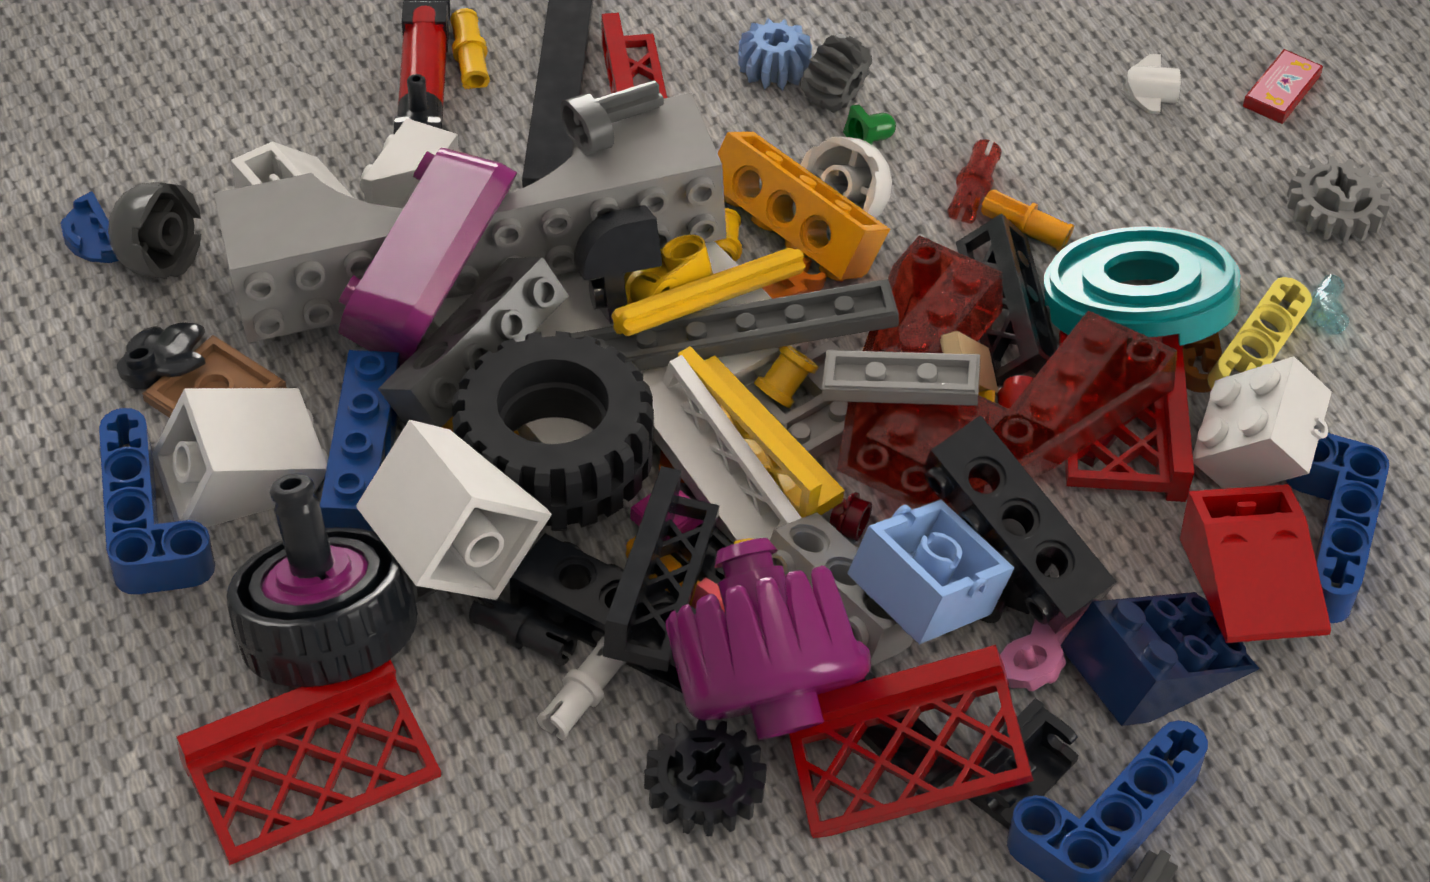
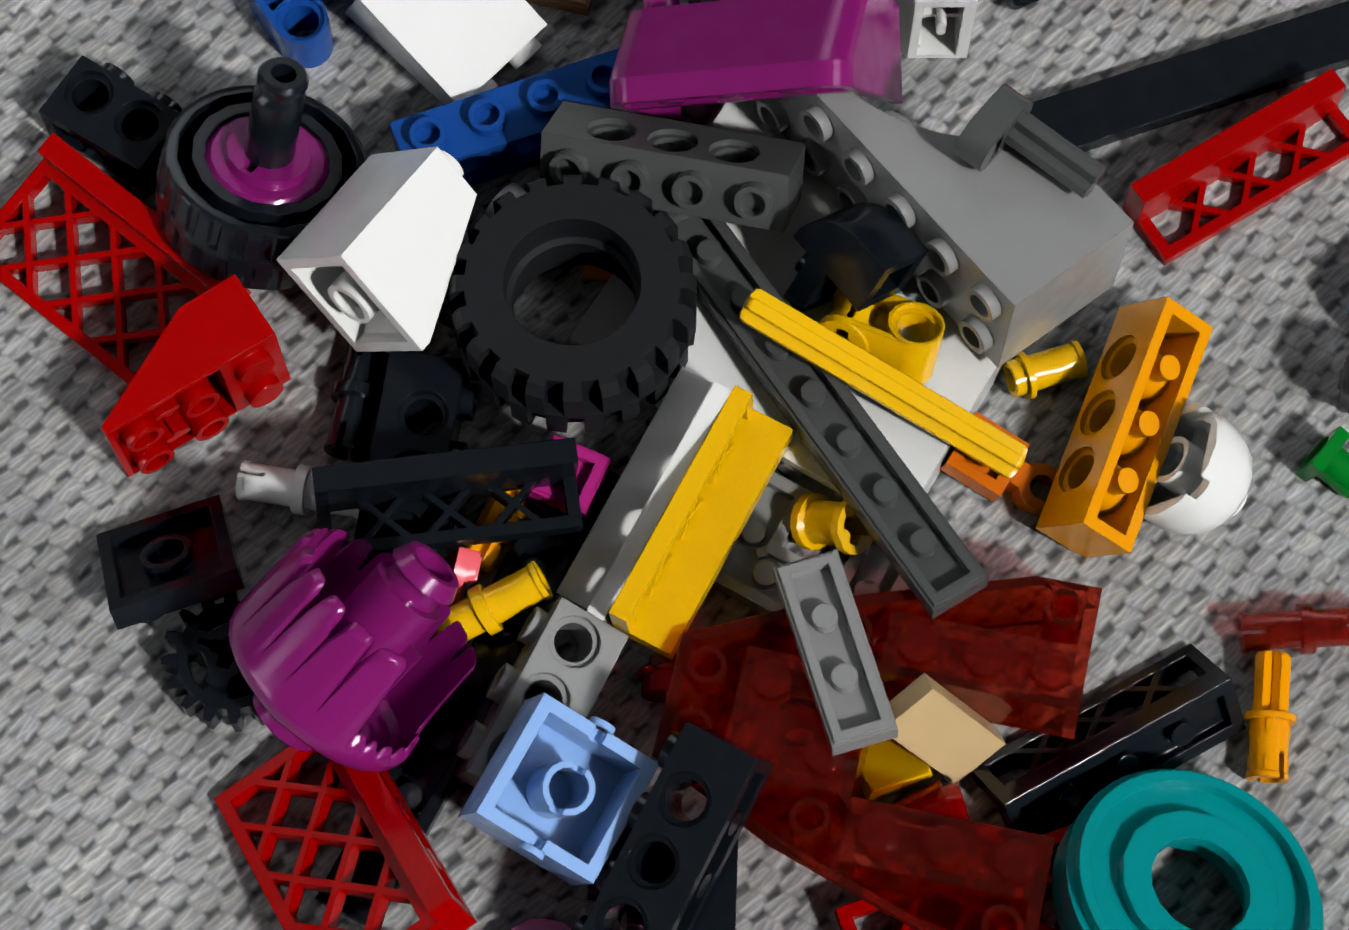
camera: 70 degrees right, 20 degrees up
(182, 701) = (109, 132): none -> black brick
(460, 702) = (199, 373): none -> red slope
(604, 785) = (169, 562): none -> black plate

